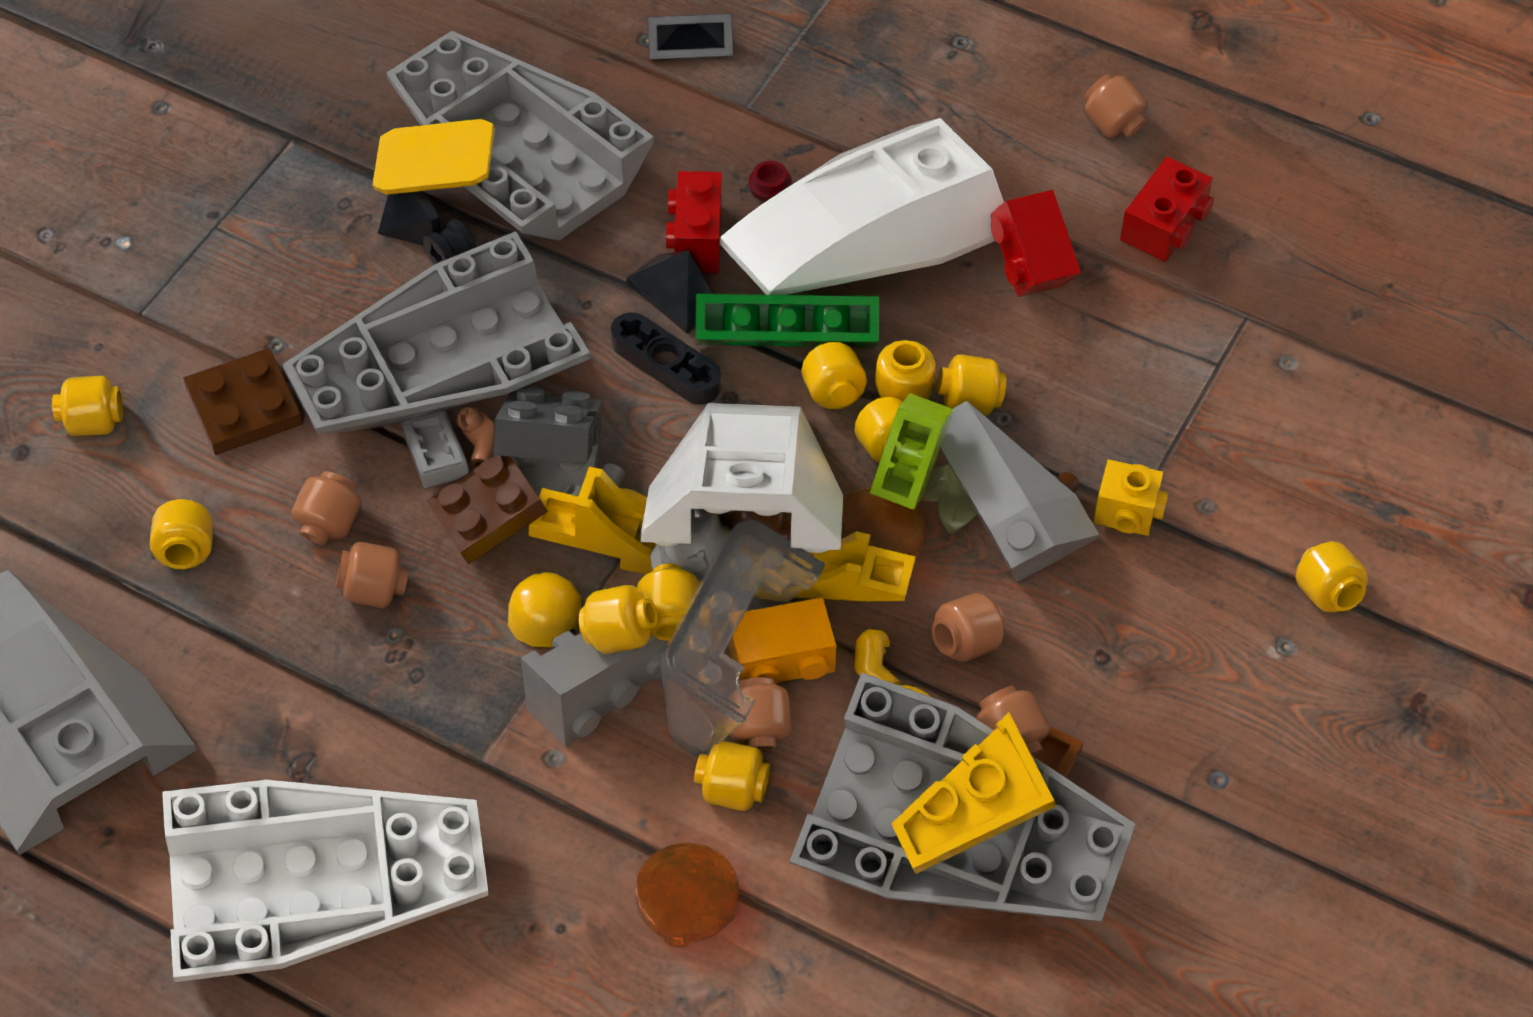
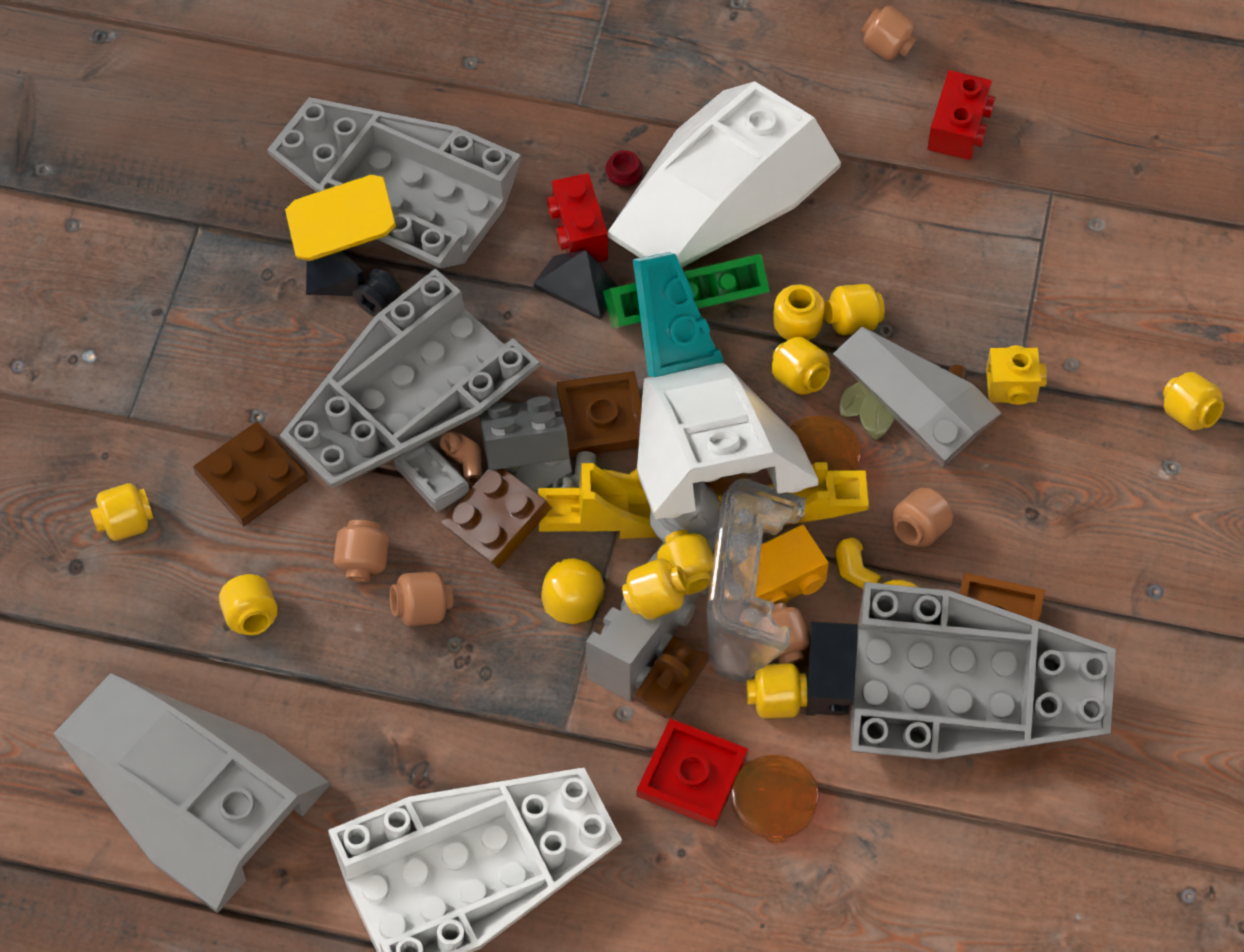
camera: 15 degrees left, 5 degrees up
(601, 840) = (692, 772): none -> red plate
(615, 729) = (671, 678): none -> reddish brown hips
(644, 426) = (601, 412): none -> reddish brown plate
(671, 375) = (585, 332): black beam -> none
(690, 36) = (510, 51): black slope -> none
(753, 342) = (670, 321): none -> teal wing
(800, 765) = (831, 668): none -> black hinge
(834, 375) = (739, 328): yellow head -> none
(911, 451) = (833, 381): lime brick -> none
(979, 799) = (988, 663): yellow wing -> none
(1024, 711) = (991, 585): nougat head -> none
(1034, 243) = (867, 173): red brick -> none

